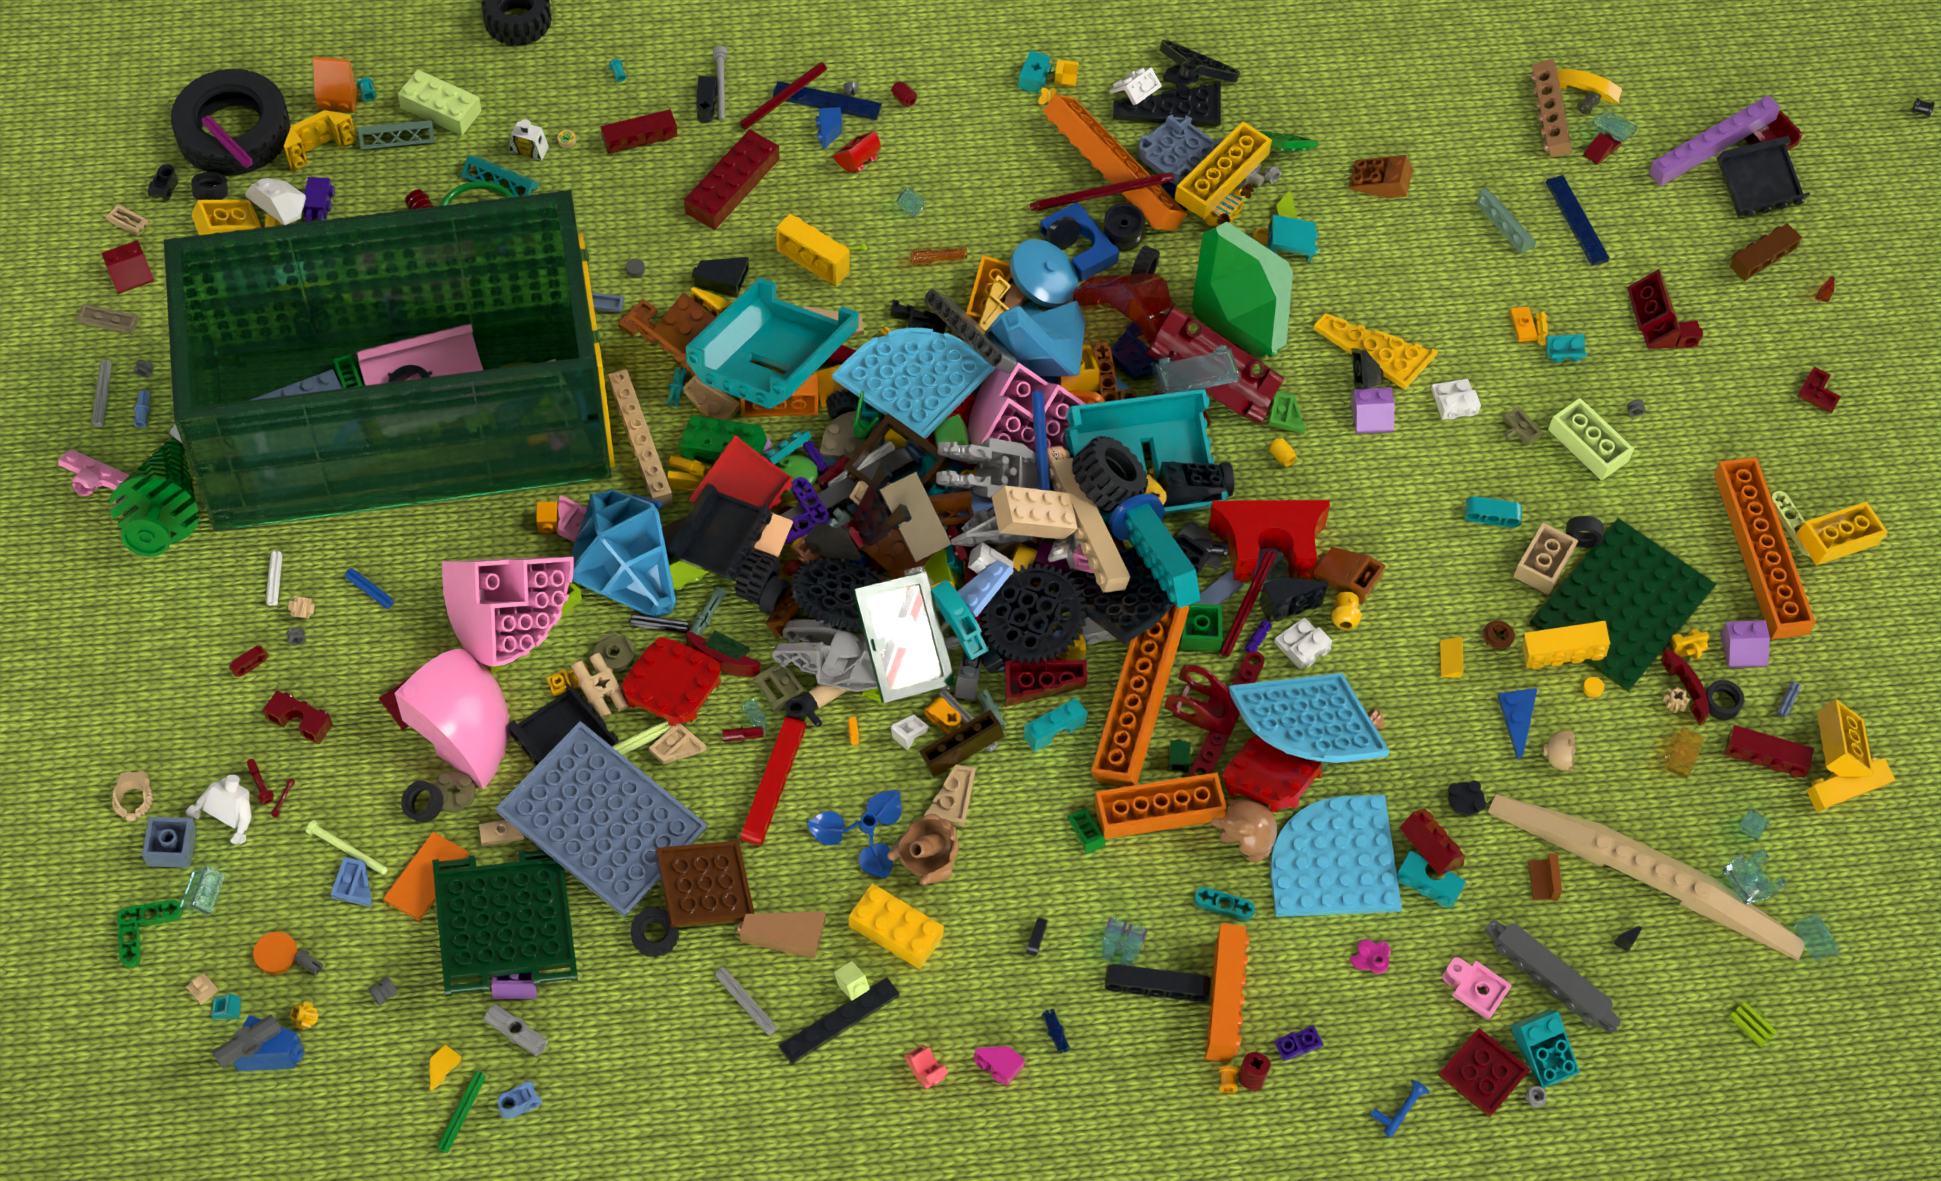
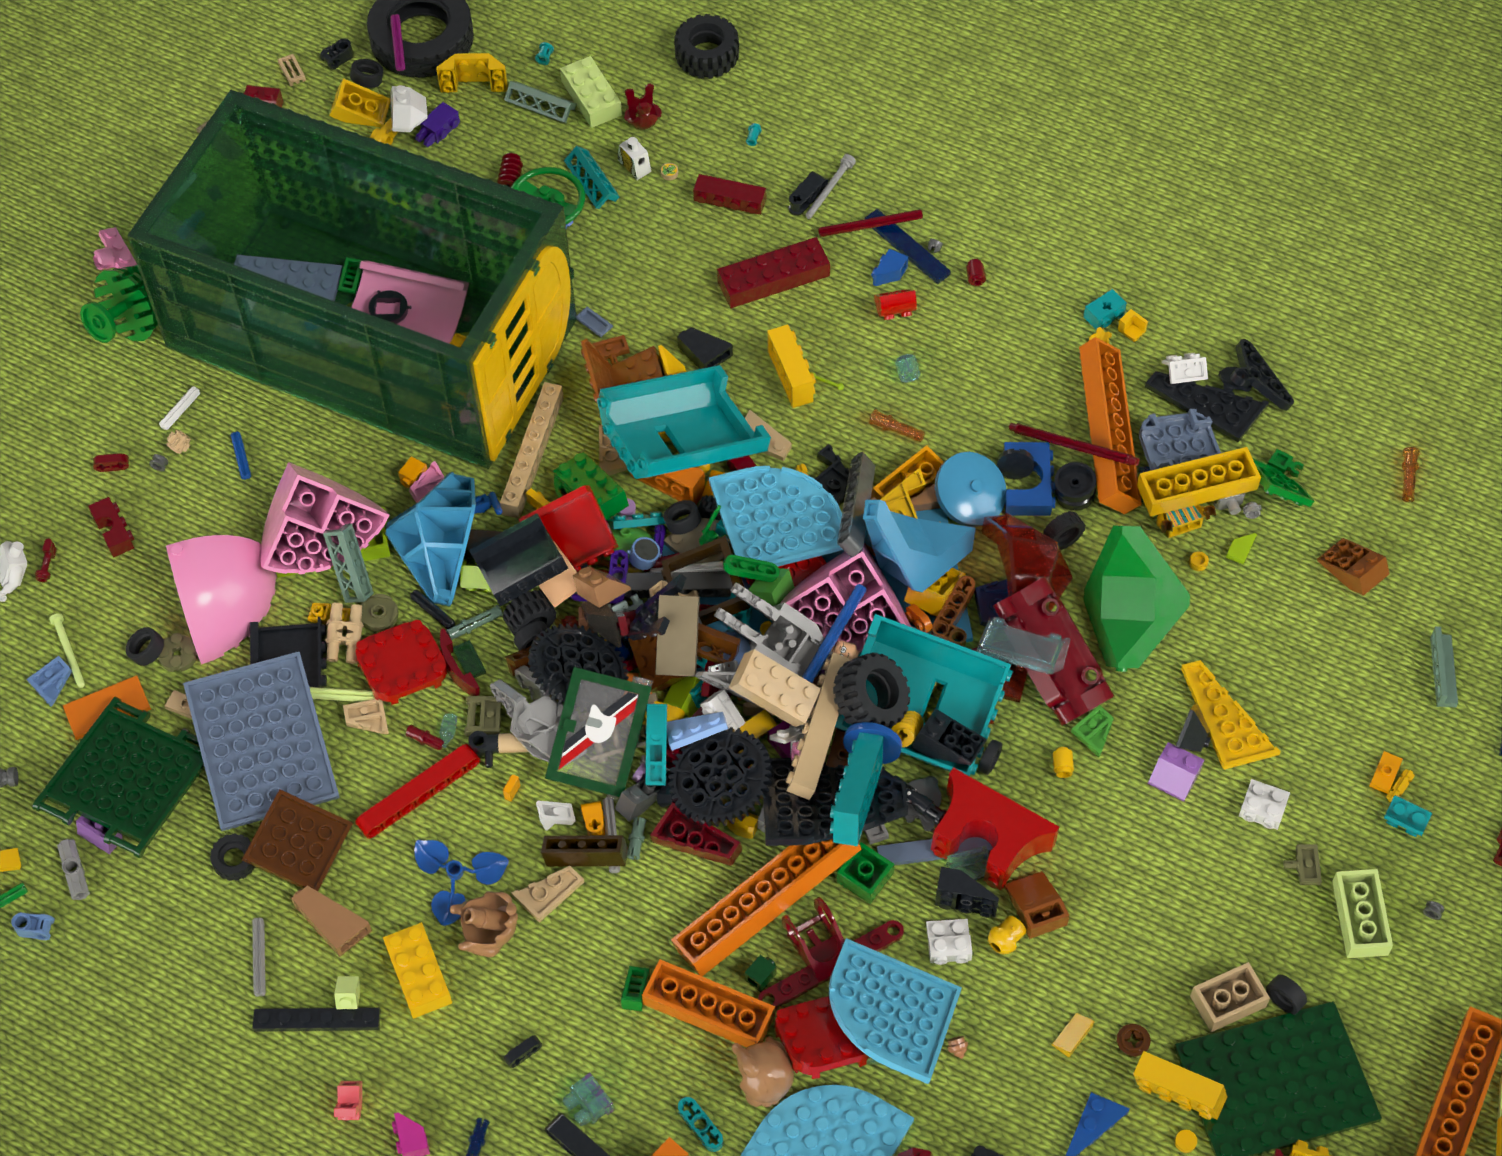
camera: 40 degrees right, 0 degrees up
(275, 812) = (41, 592): dark red hinge -> none
(334, 84) = (516, 37): orange slope -> none
(501, 89) = (647, 111): none -> dark red piece
(567, 616) = (353, 564): none -> sand green fence
(635, 267) = (640, 306): dark grey tile -> none
(676, 387) = (590, 426): teal pin -> none
(694, 468) = (549, 491): yellow pin -> none
(809, 517) = (598, 586): none -> medium nougat slope
(817, 416) = (686, 524): none -> black tyre
(818, 470) = (644, 553): none -> piece
(933, 428) = (751, 568): none -> green plate
(953, 655) = (640, 773): none -> lavender tile
(1043, 729) = (664, 879): teal arch -> none
(1247, 603) = (922, 876): dark red axle -> none
(1258, 636) = (913, 911): dark purple axle -> none
(1268, 124) = (1284, 462): none -> green plate
(1292, 236) = (1223, 575): teal panel -> none
(1364, 77) = (1410, 467): none -> clear orange pin
(1493, 512) = (1217, 926): teal beam -> none

